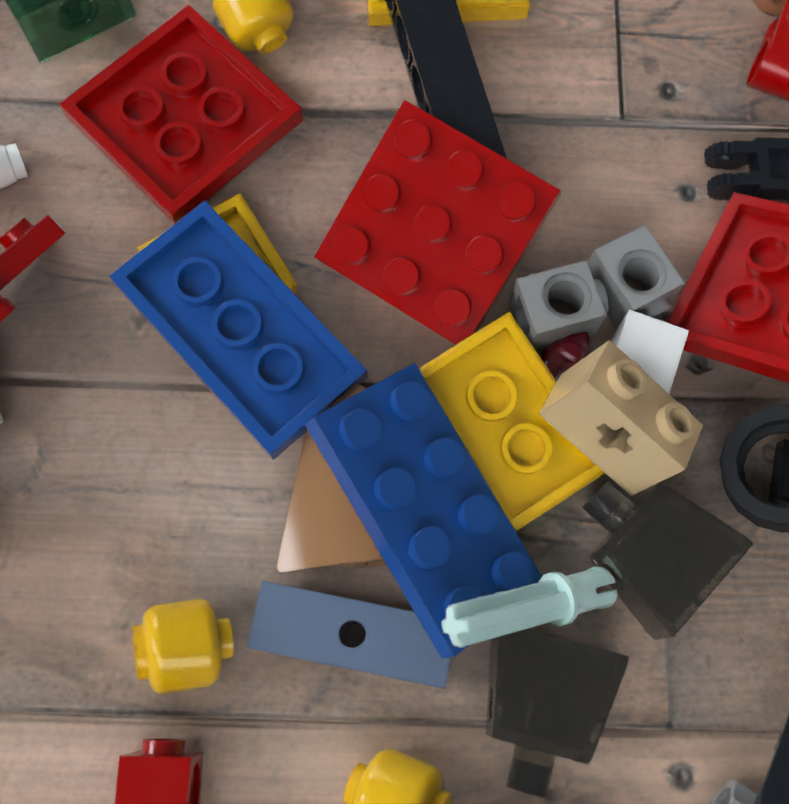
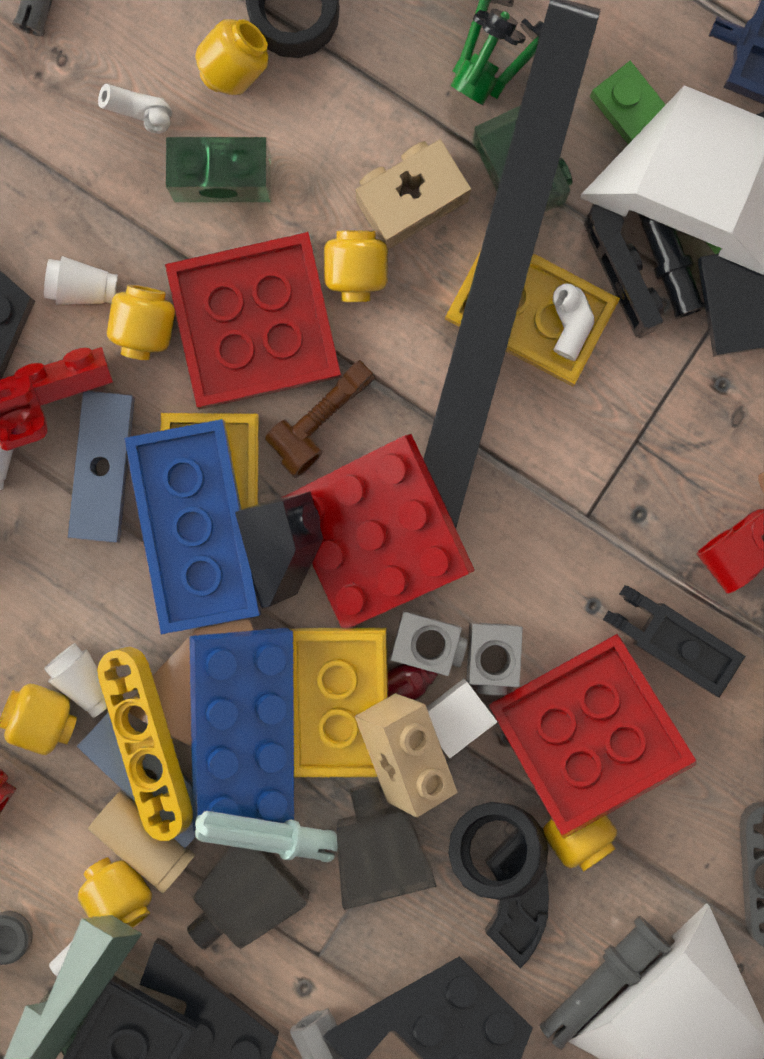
camera: 35 degrees right, 15 degrees up
(63, 168) = (140, 321): none -> yellow head
(89, 305) = (98, 499): none -> sand blue tile
(206, 571) = (77, 678): none -> white cone
(296, 199) = (294, 441): none -> reddish brown brick
(317, 596) = (154, 741): none -> yellow beam
(342, 285) = (280, 544): none -> black slope
(390, 715) = (124, 834): none -> tan pin

